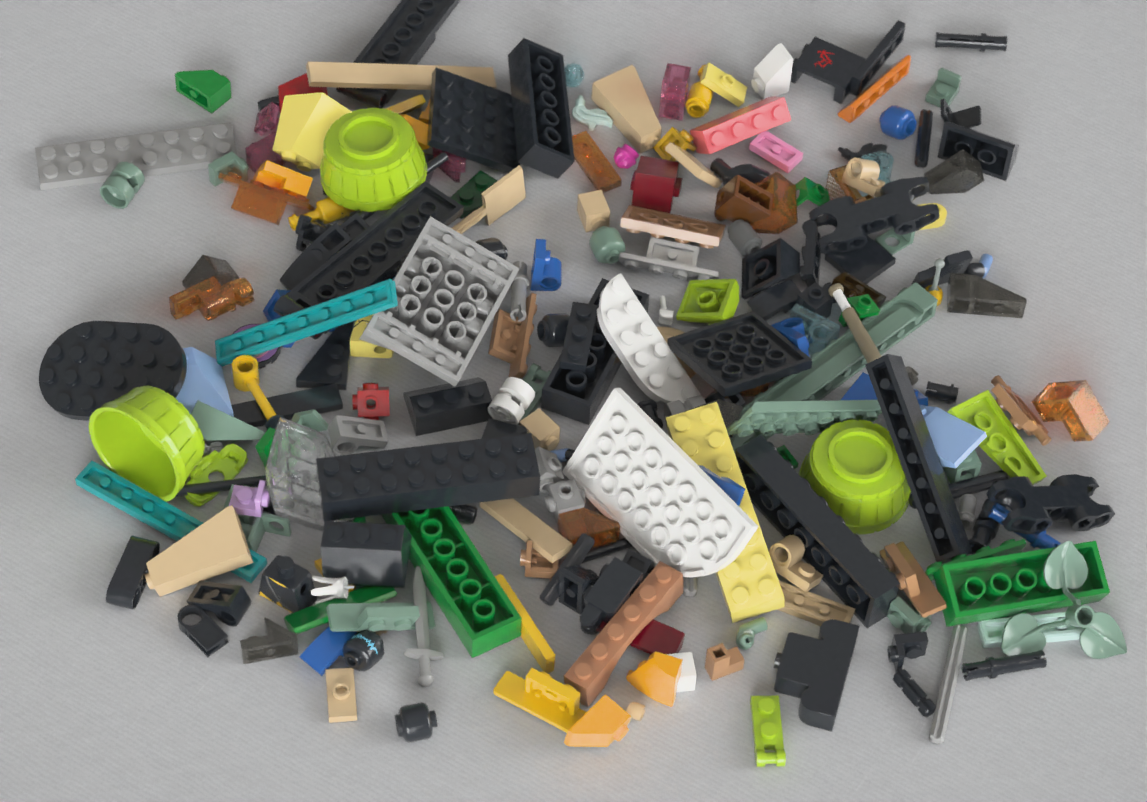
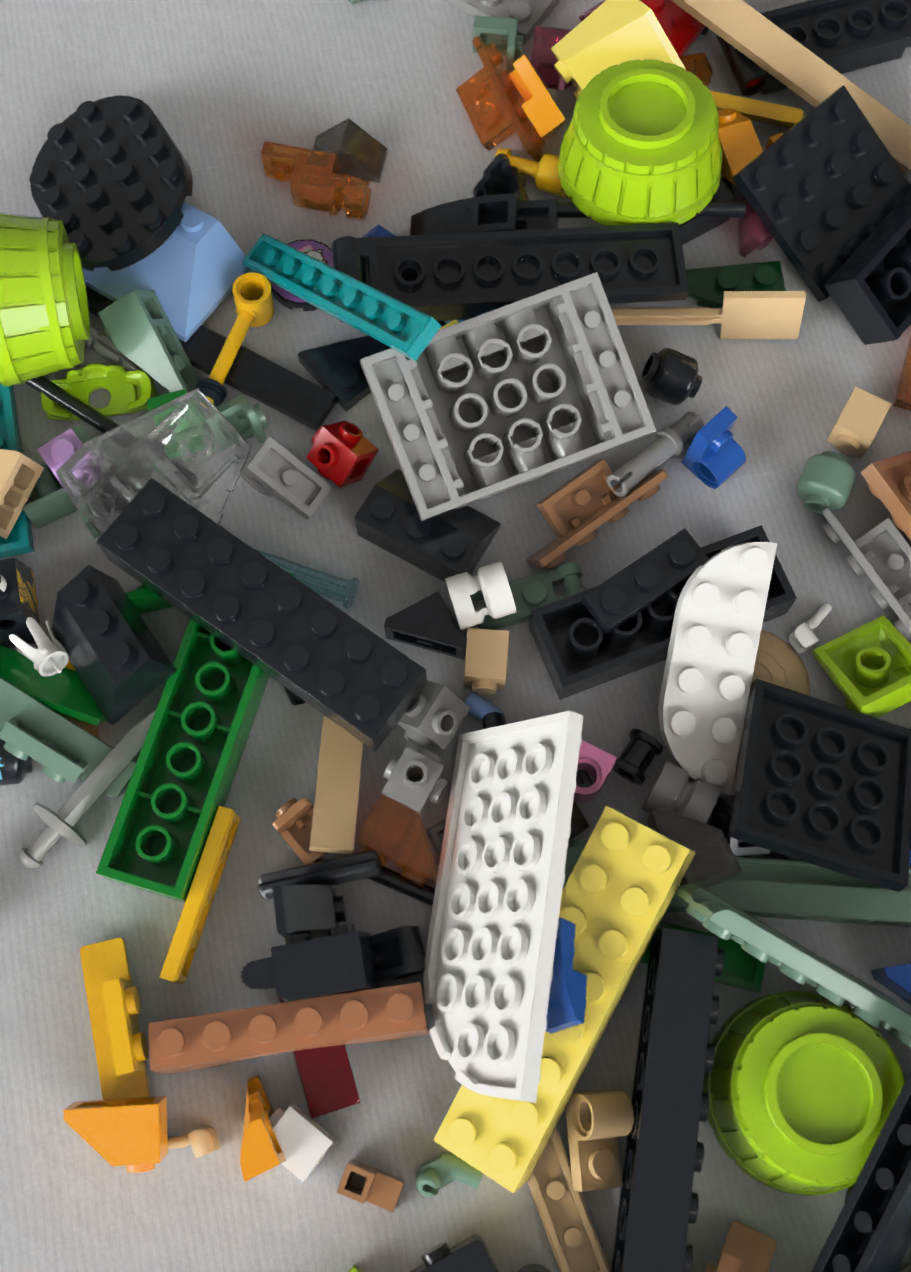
camera: 50 degrees right, 20 degrees up
(553, 329) = (642, 535): black head -> none

